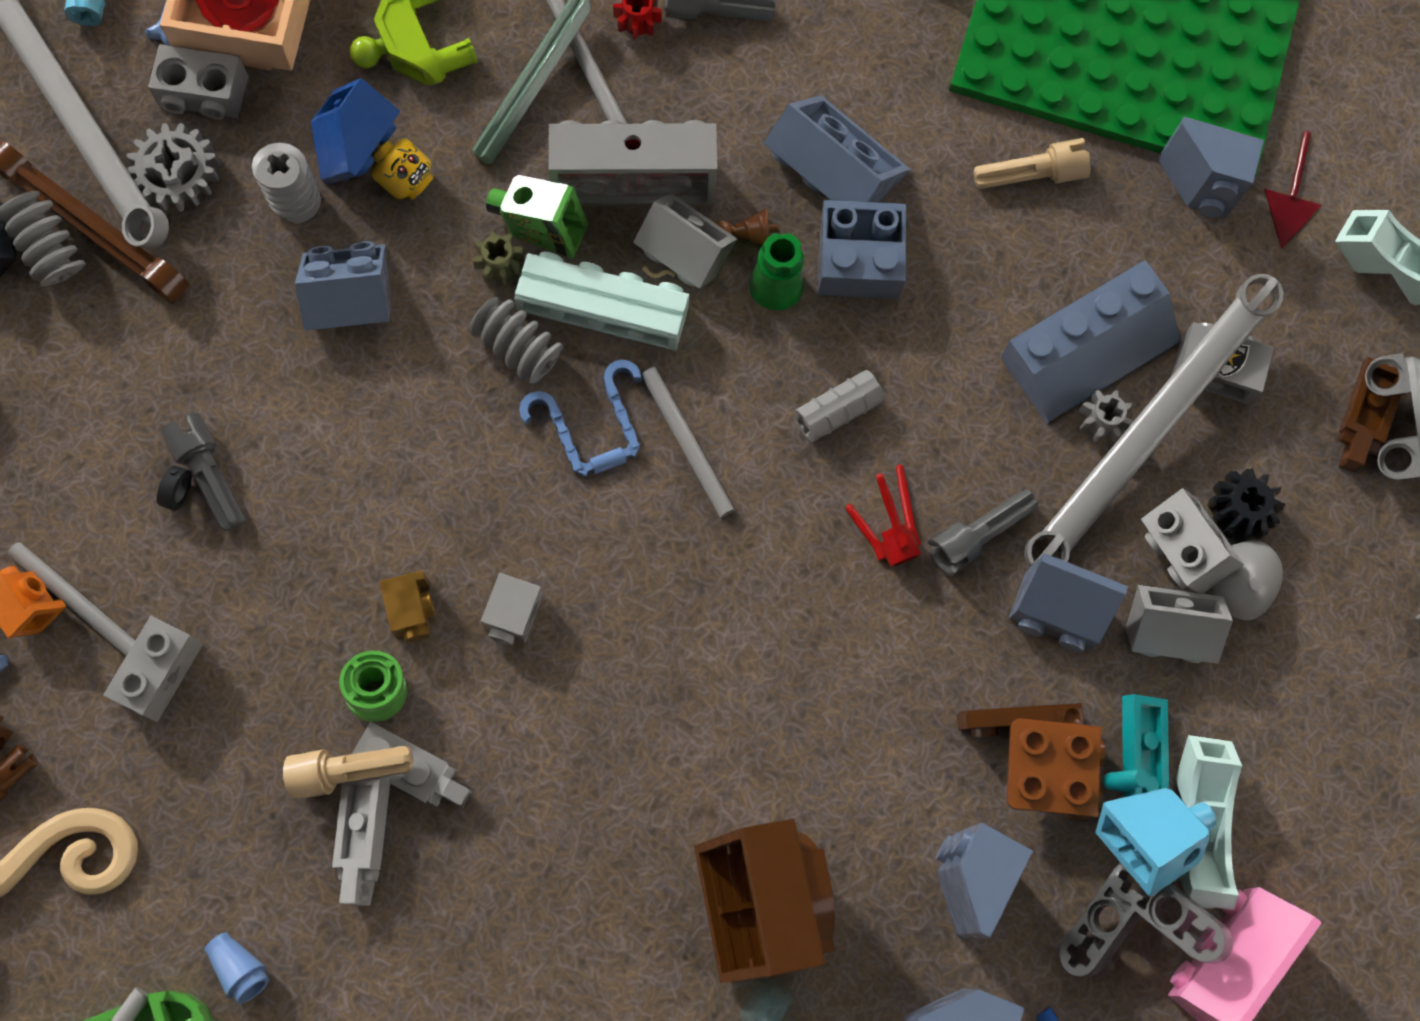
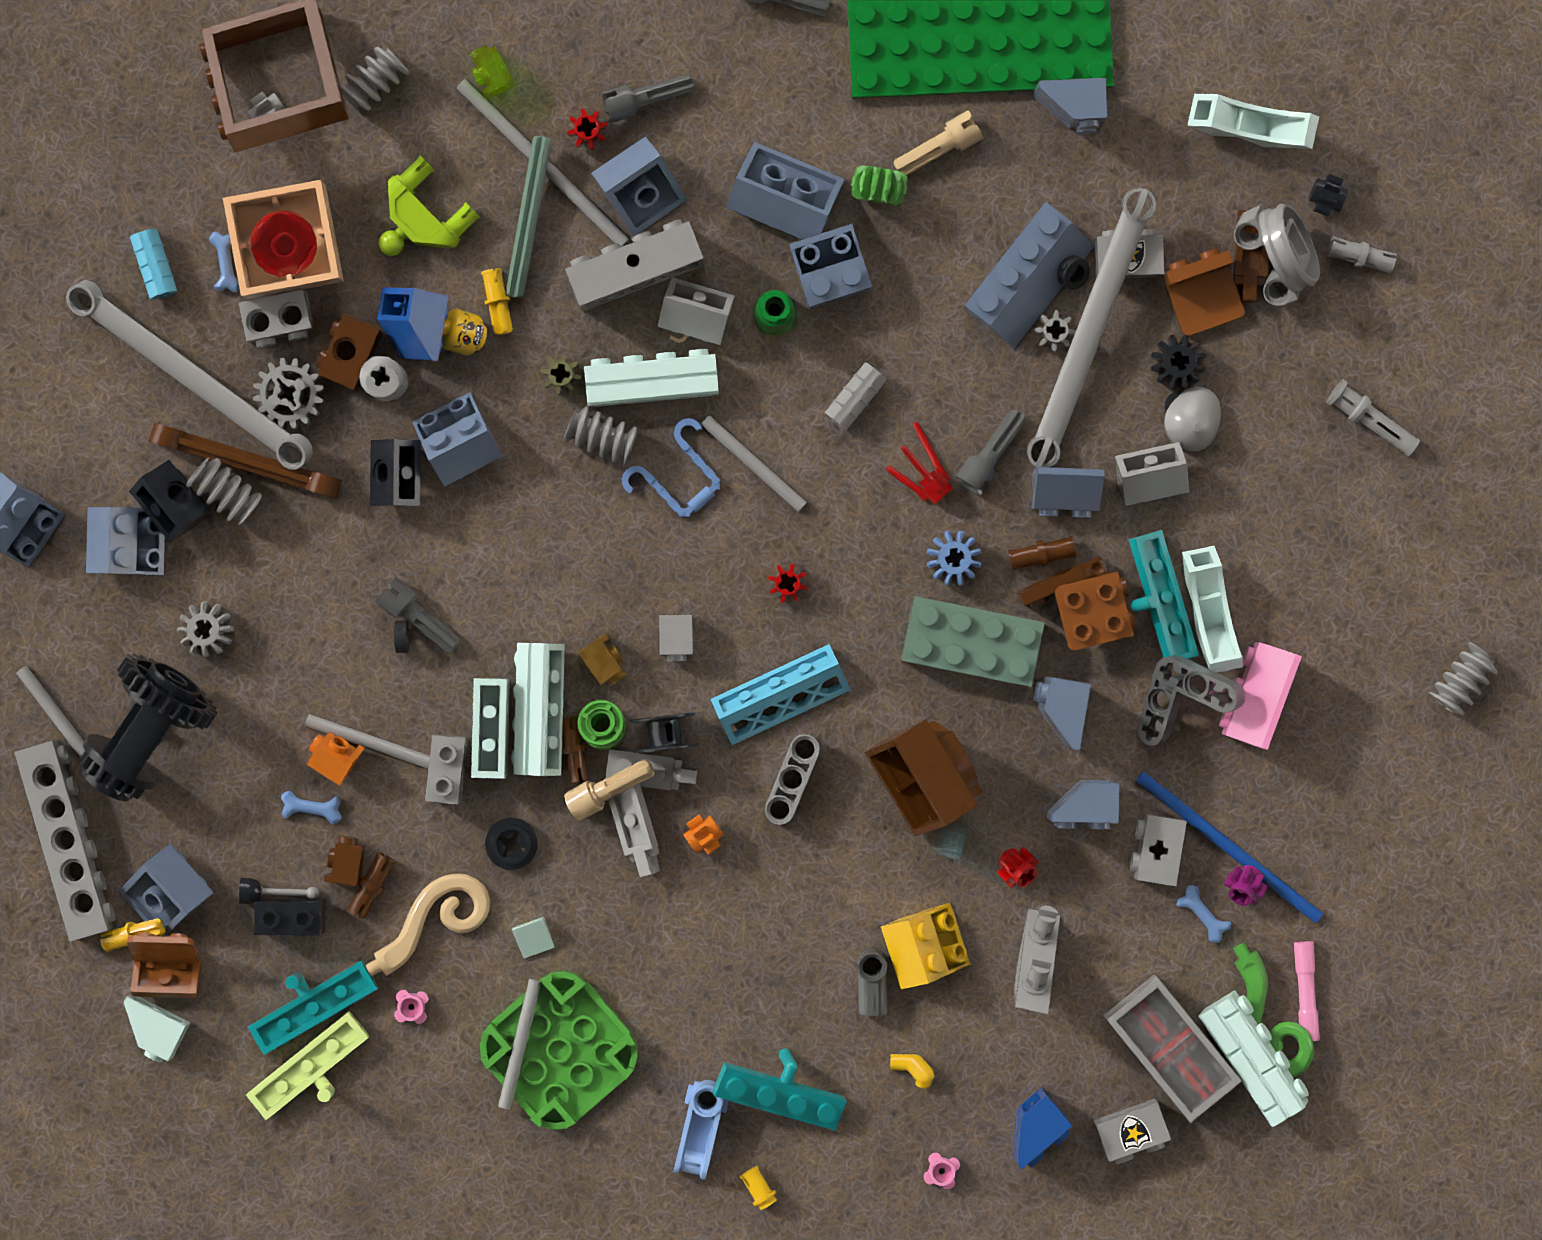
camera: 15 degrees left, 15 degrees up
(168, 933) = (533, 937): none -> light aqua slope
(174, 796) = (496, 848): none -> black gear
(230, 636) = (490, 728): none -> light aqua brick
(236, 968) = (589, 943): medium blue cone -> none
(253, 293) = (395, 472): none -> black brick
(265, 125) = (365, 341): none -> reddish brown brick
(302, 636) = (538, 709): none -> light aqua brick
(324, 707) = (574, 751): none -> reddish brown pin
(444, 876) = (703, 834): none -> orange gear
(446, 721) = (664, 732): none -> black piece
(458, 155) = (497, 301): none -> yellow axle
(541, 214) = (589, 332): bright green torso -> none
(594, 823) = (792, 795): none -> light grey beam
(613, 724) = (778, 690): none -> medium azure fence
(673, 84) = (639, 186): none -> sand blue slope
(684, 588) = (778, 580): none -> red gear
(753, 229) = (741, 277): dark orange piece -> none
(884, 752) = (972, 641): none -> sand green brick
(907, 652) = (963, 563): none -> medium blue gear
(951, 179) = (879, 185): none -> bright green gear
(1007, 674) = (1042, 553): none -> reddish brown pin
(1138, 353) = (1065, 269): none -> black piece
(1156, 835) = (1175, 636): medium azure torso -> none
(1190, 542) = (1143, 410): light grey brick -> none
(1287, 210) = (1148, 102): dark red piece -> none
(1300, 431) = (1203, 292): none -> dark orange bracket

